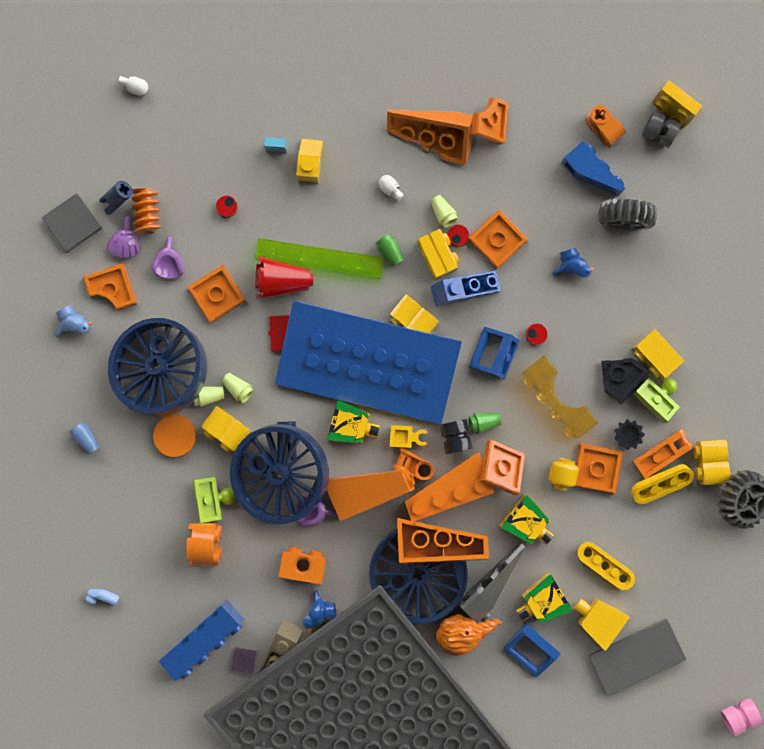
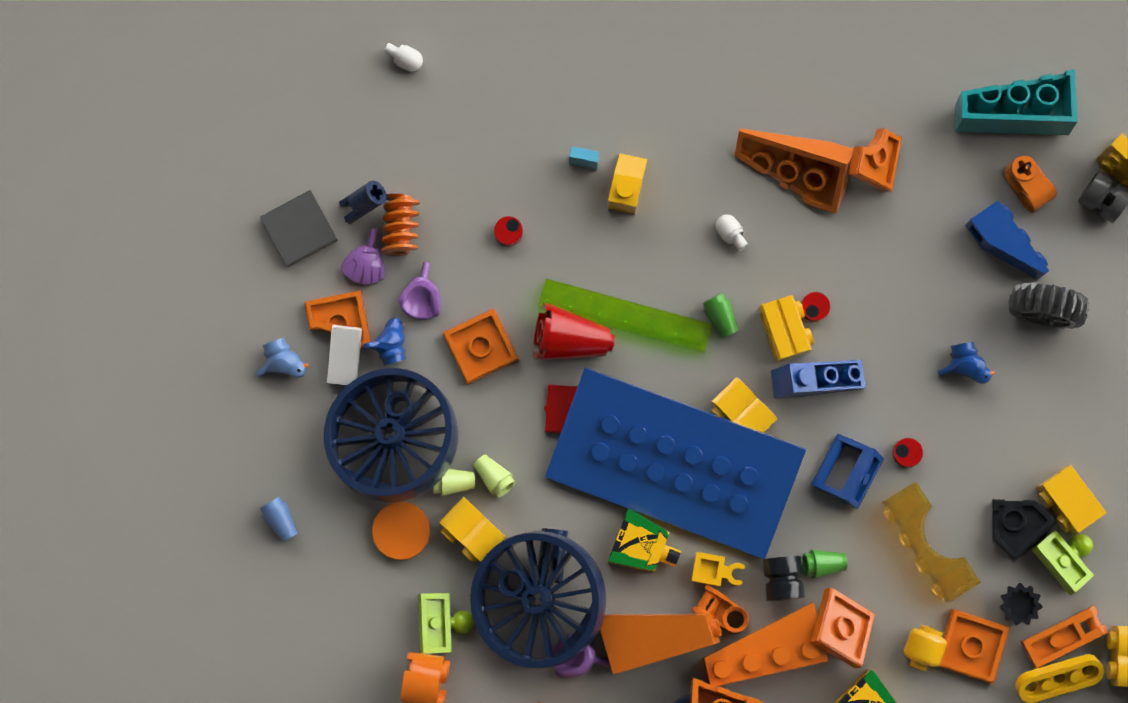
camera: 10 degrees right, 5 degrees down
(116, 312) = (344, 354): none -> white tile
(149, 299) = (389, 342): none -> blue animal
(444, 212) = (800, 274): yellowish green cone -> none
(498, 239) = (868, 318): orange tile -> none
(592, 70) = (1021, 107): none -> teal wedge

